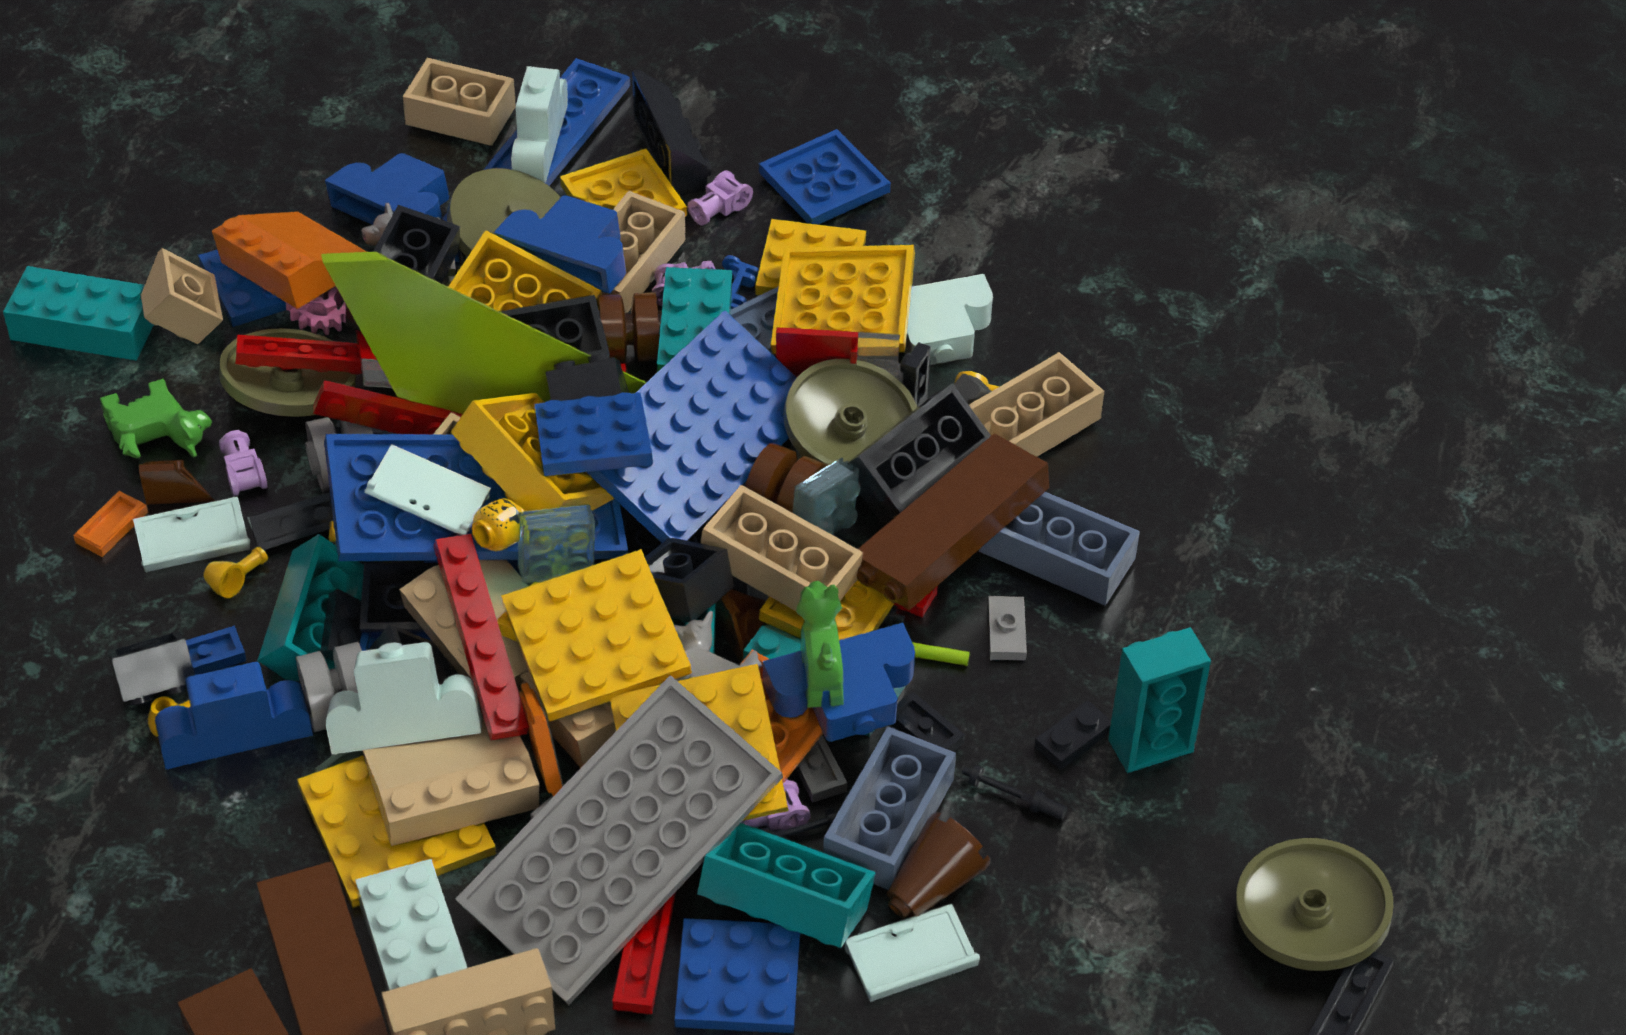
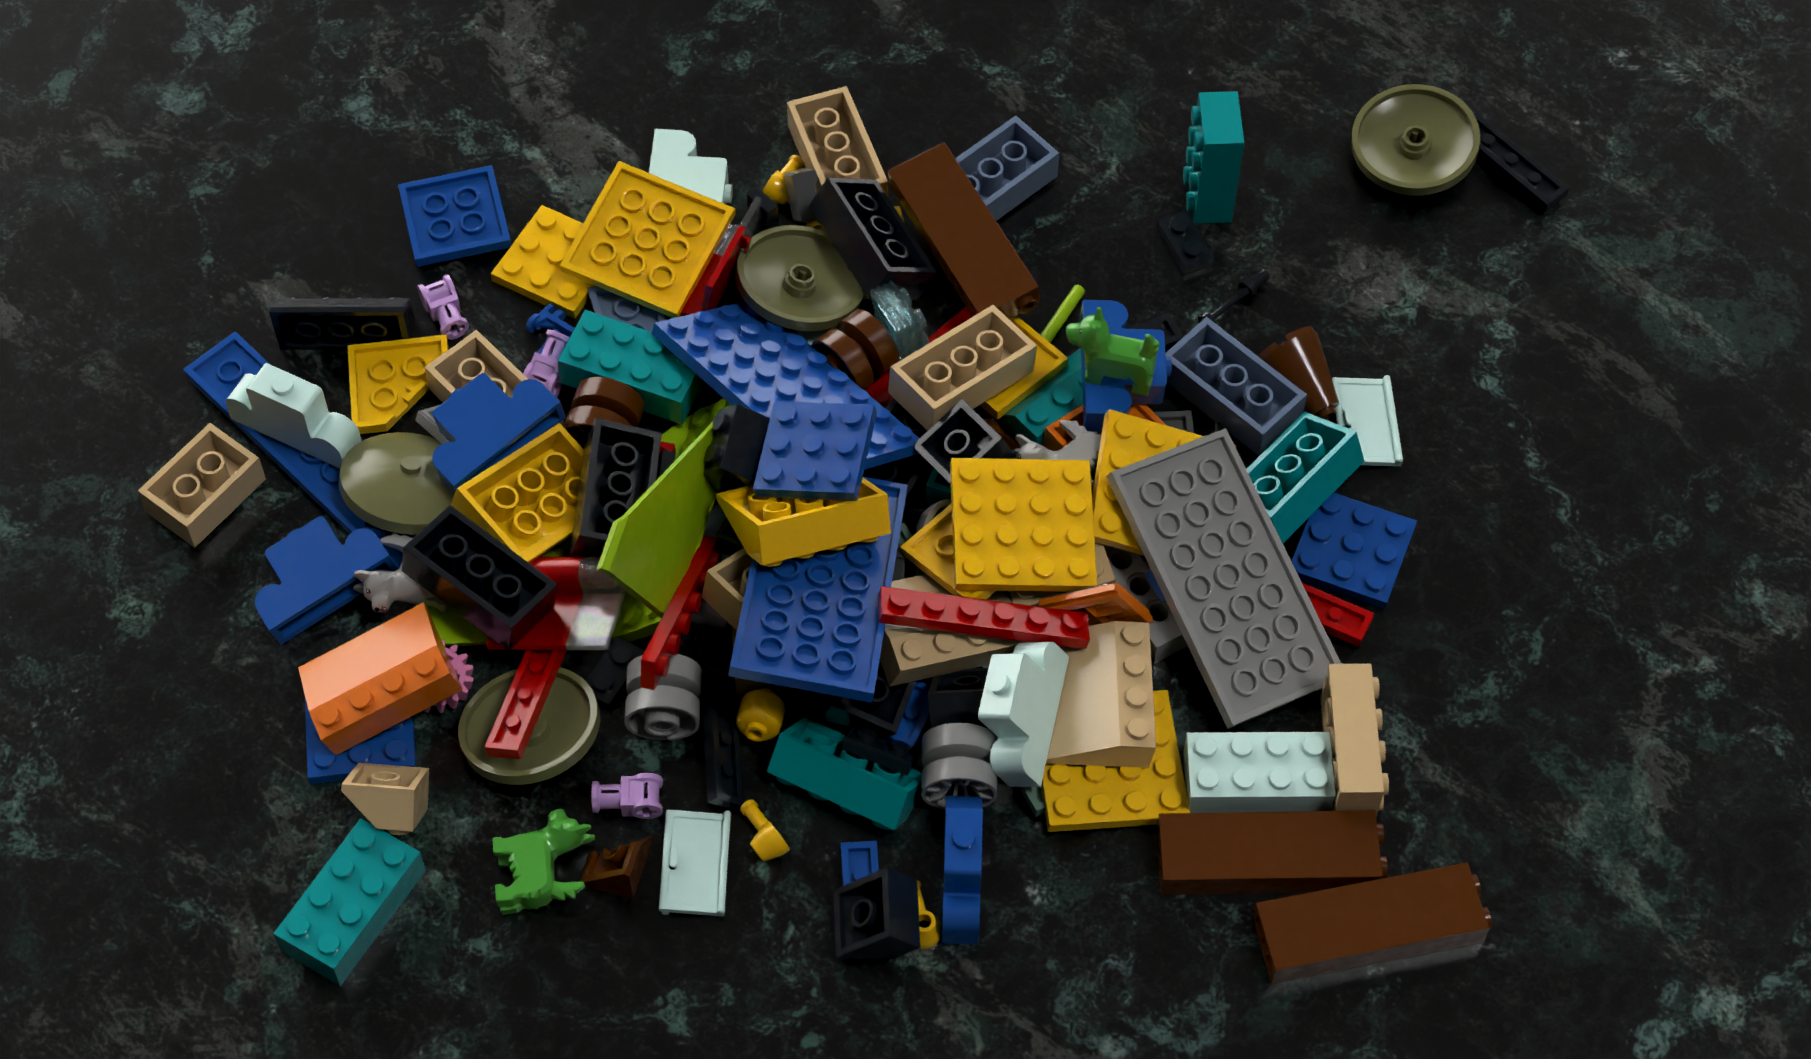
camera: 70 degrees left, 10 degrees up
(110, 523) = (651, 933): orange tile -> none
(446, 494) = (816, 605): light aqua door -> none
(497, 525) = (880, 560): yellow head -> none
(555, 542) = (911, 525): clear light blue brick -> none
(1007, 628) = (1056, 251): light grey plate -> none

